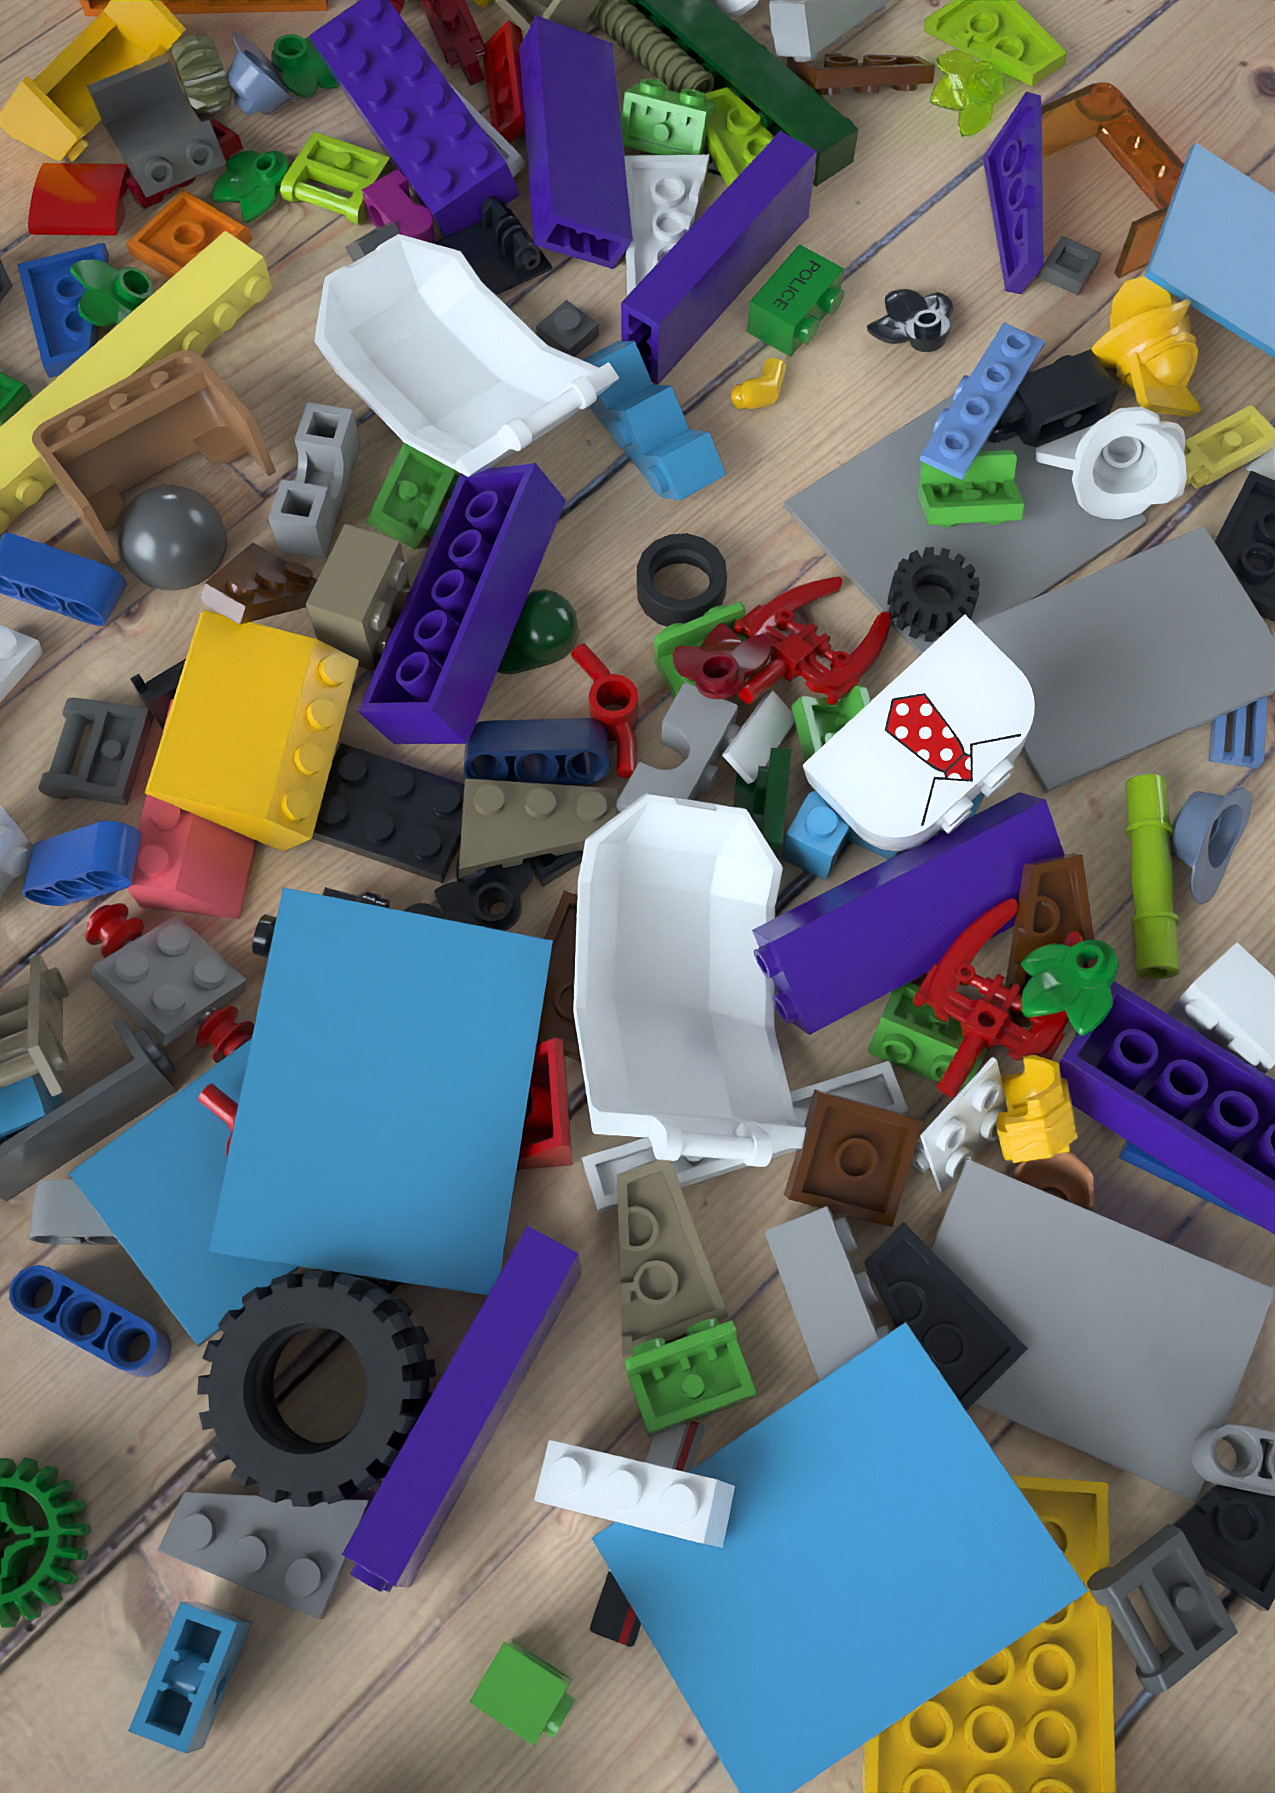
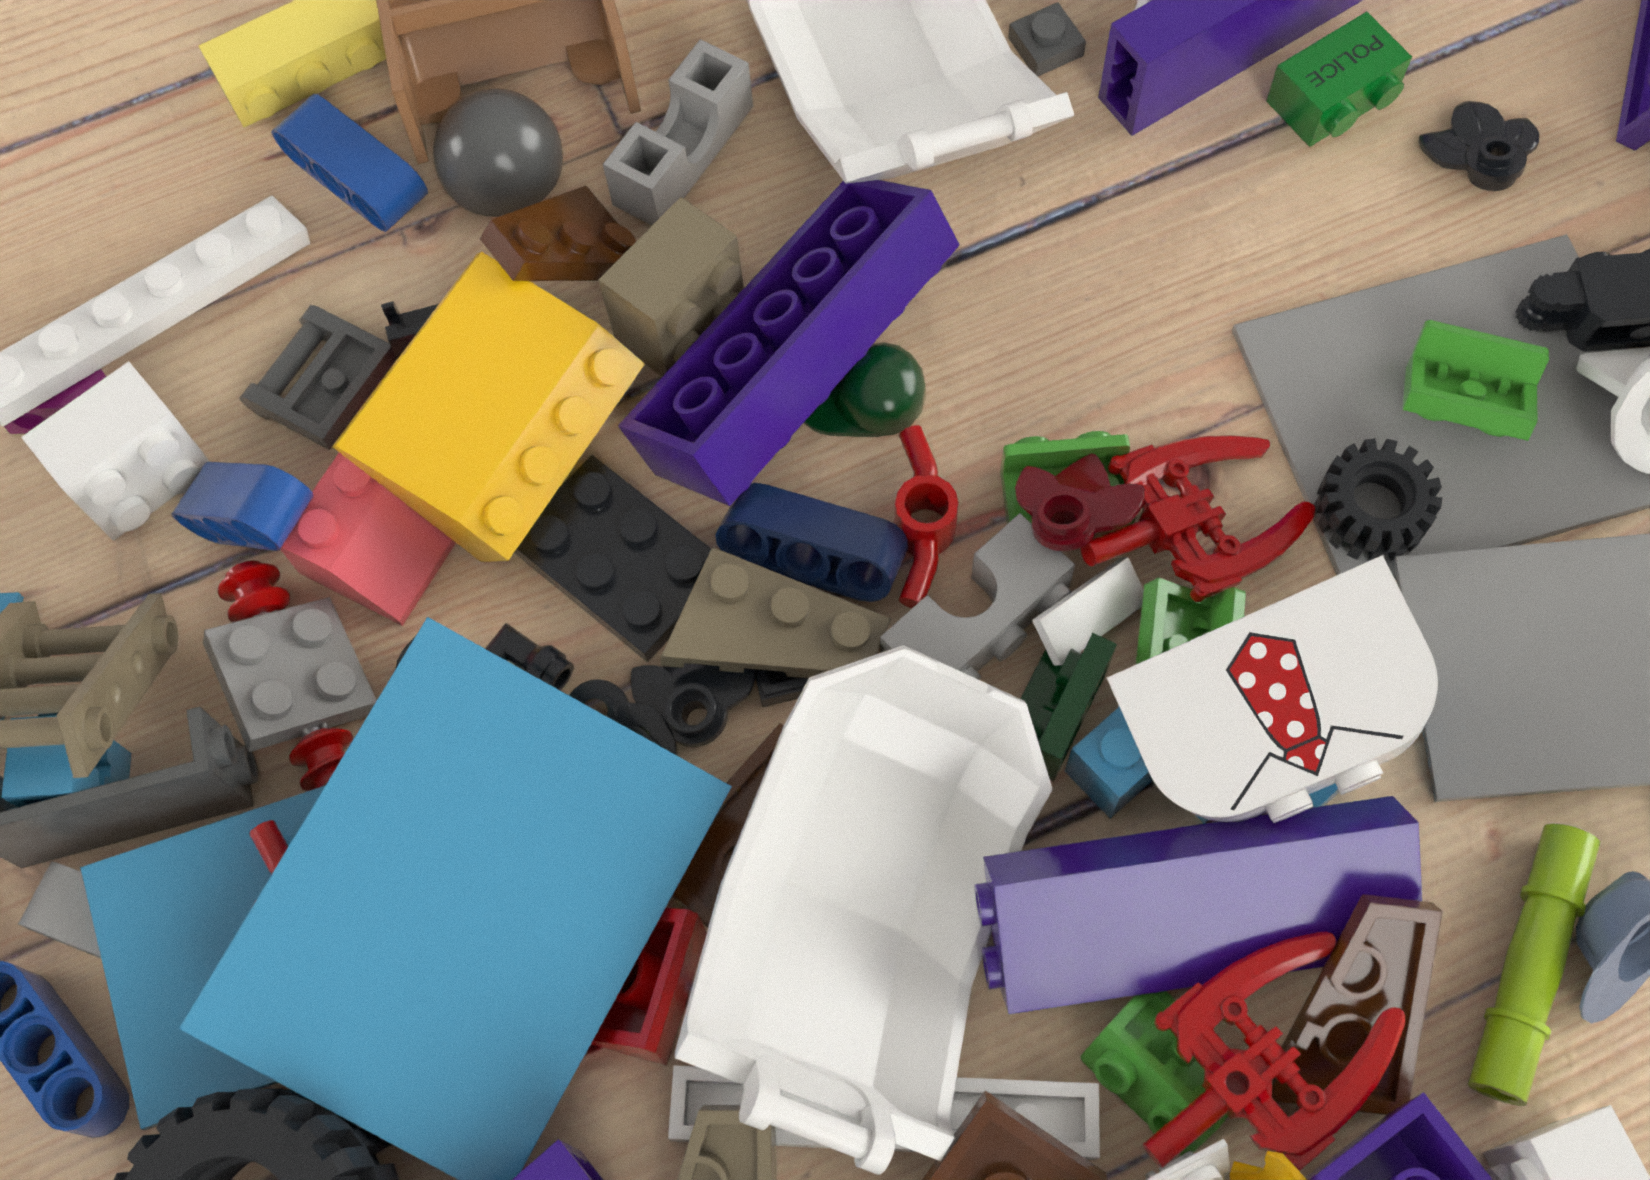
camera: 25 degrees right, 0 degrees up
(412, 497) = (782, 187): bright green bracket -> none
(652, 427) = (1102, 185): dark azure brick -> none
(680, 550) = (1077, 345): black tyre -> none
(762, 390) = (1256, 179): yellow arm -> none
(981, 401) = (1528, 273): medium blue bracket -> none
(1063, 984) = (1352, 1078): green plate -> none

